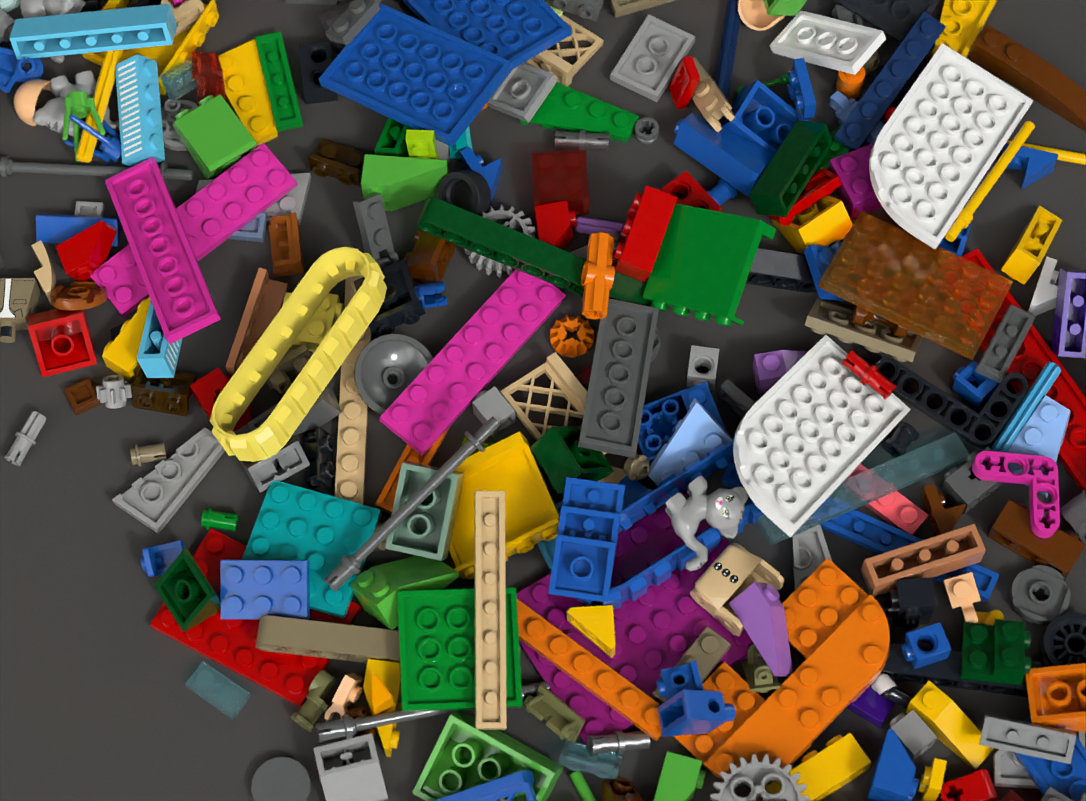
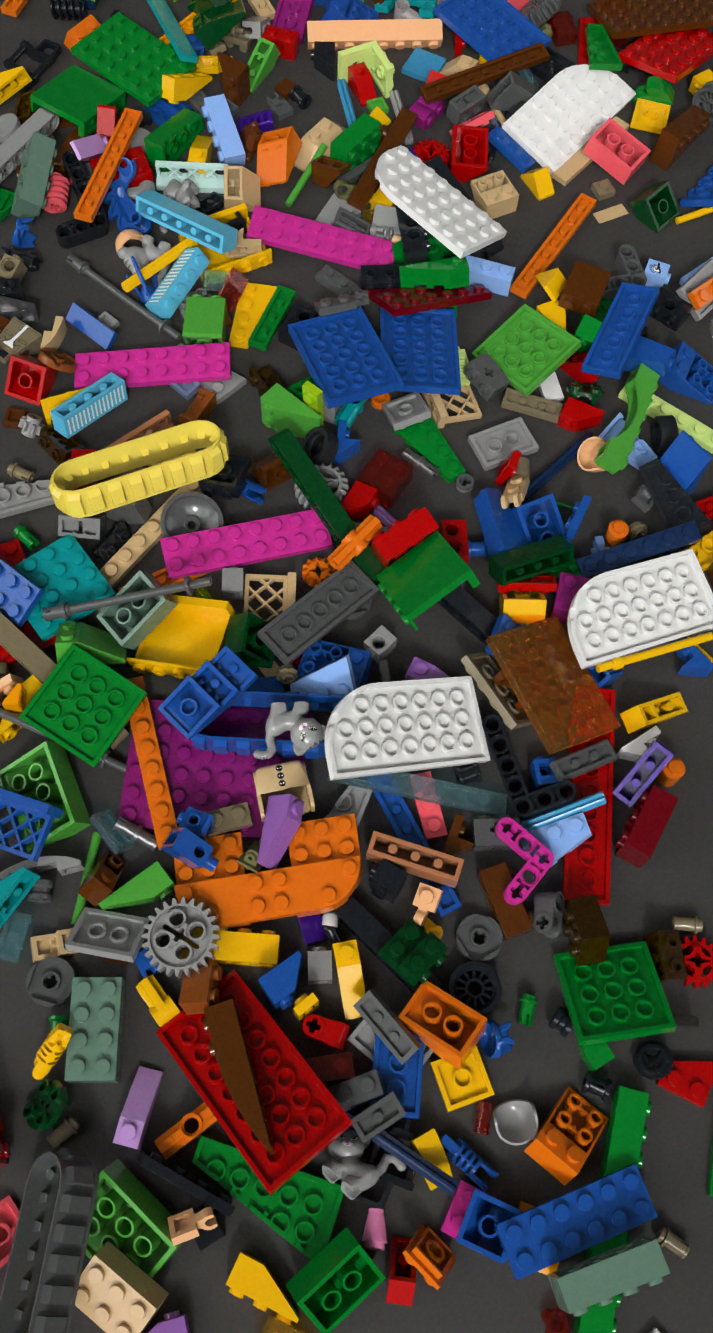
camera: 30 degrees right, 0 degrees up
(78, 105) = (144, 256): bright green plant -> none
(86, 250) = (84, 338): red slope -> none
(162, 250) = (117, 363): dark pink plate -> none
(375, 229) = (249, 431): dark grey plate -> none
(490, 610) = (116, 694): tan plate -> none
(557, 714) = (113, 797): olive hinge -> none
(596, 625) = (181, 751): yellow slope -> none
(828, 42) = (618, 501): white plate -> none
(869, 374) = (477, 719): red pin -> none
(935, 637) = (374, 925): blue brick -> none

